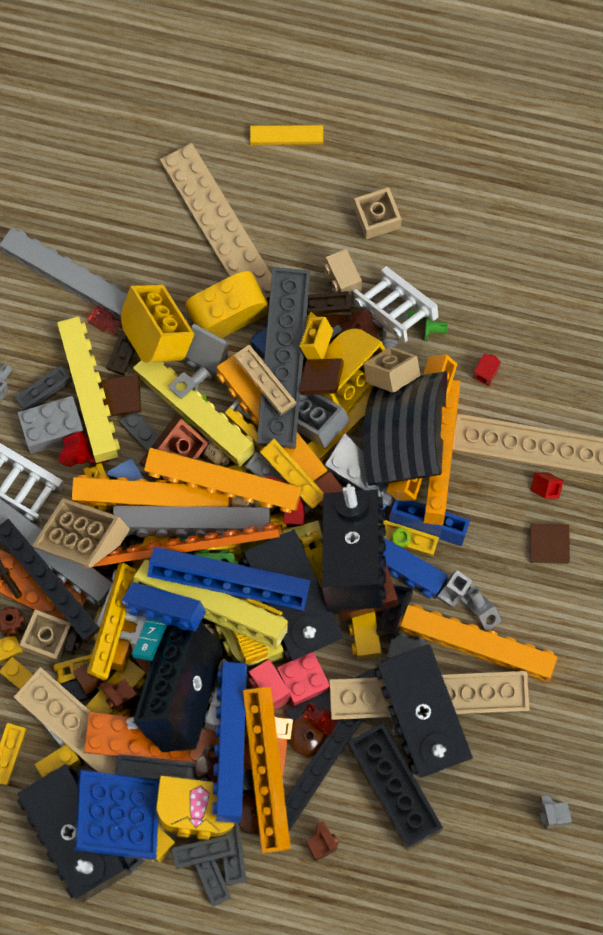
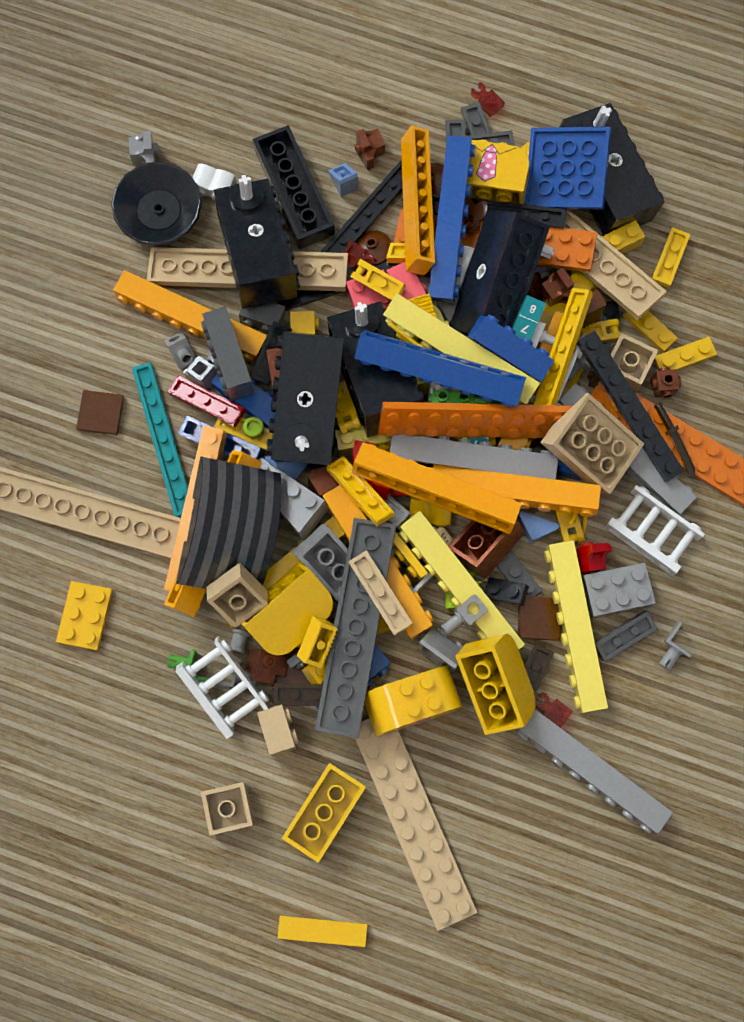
camera: 175 degrees left, 5 degrees up
(152, 413) = (506, 591): none -> black plate
(201, 913) = (489, 101): none -> clear red plate
(295, 218) = (324, 812): none -> yellow brick
(297, 678) = (378, 280): none -> yellow plate
(321, 376) = (316, 594): reddish brown tile -> none
(345, 807) = (344, 179): none -> medium blue slope
(433, 592) = (226, 354): none -> dark grey brick
(449, 560) = (207, 401): none -> tile
(478, 786) = (211, 178): none -> white brick
(486, 369) = (132, 607): red brick -> none
(486, 526) = (161, 436): none -> teal tile
(529, 360) = (84, 615): none -> yellow plate
(536, 731) = (155, 187): none -> black dish
(546, 485) = (91, 471): red panel -> none

